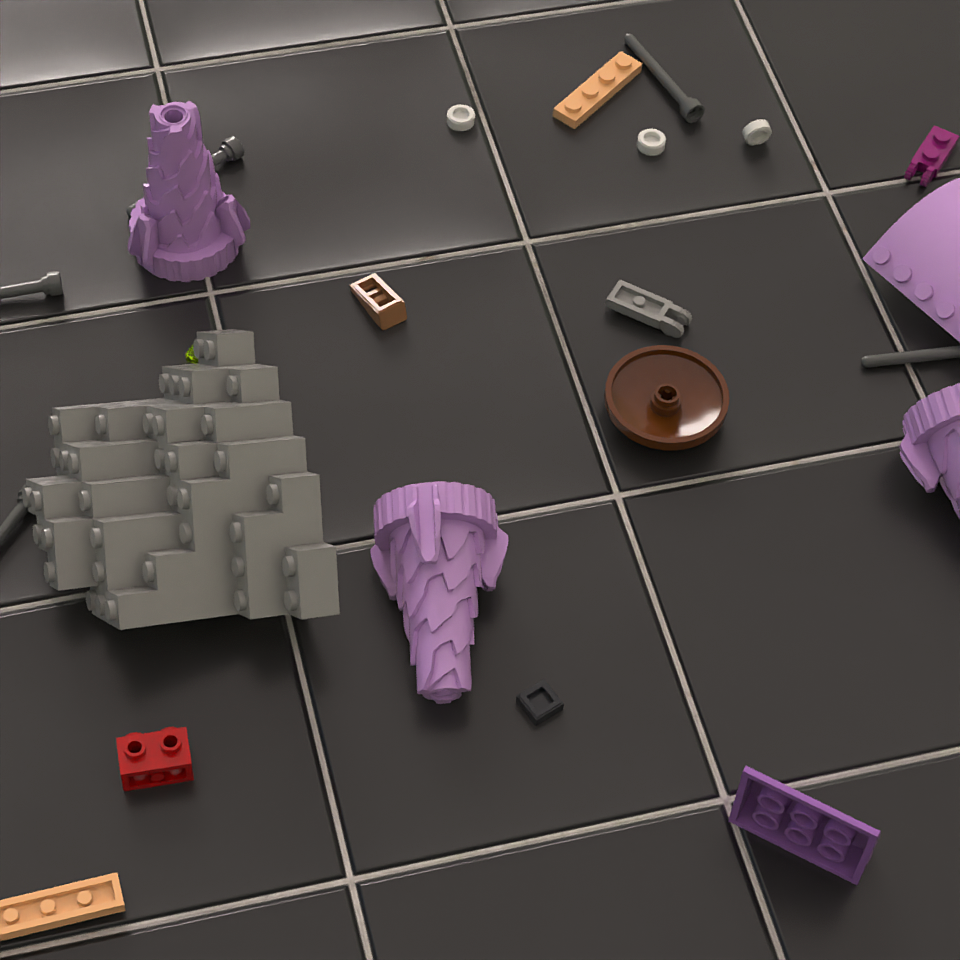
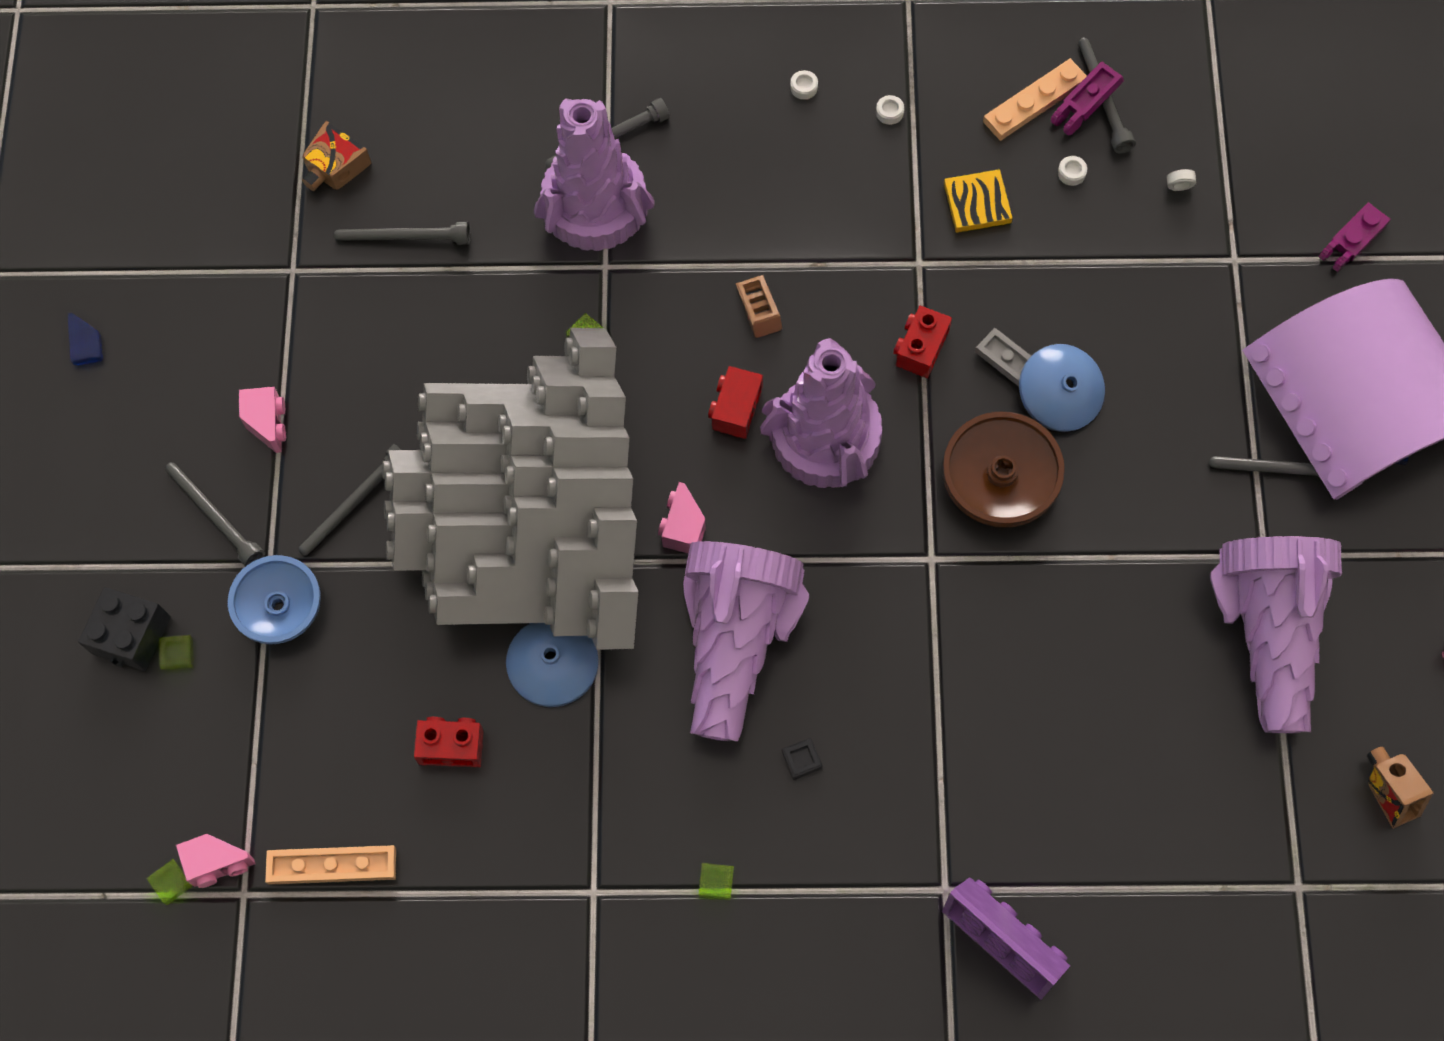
camera: 20 degrees right, 15 degrees up
(249, 676) = (553, 680): none -> medium blue dish
(355, 502) = (684, 521): none -> bright pink slope
(370, 109) = (804, 84): none -> white tile
(380, 384) = (736, 402): none -> red brick
(479, 386) = (827, 422): none -> lavender cone
(482, 839) = (716, 881): none -> clear neon green tile
(552, 303) = (923, 341): none -> red brick
(568, 179) = (978, 201): none -> yellow tile
(647, 77) = (1087, 97): none -> magenta hinge
(701, 319) = (1051, 399): none -> medium blue dish

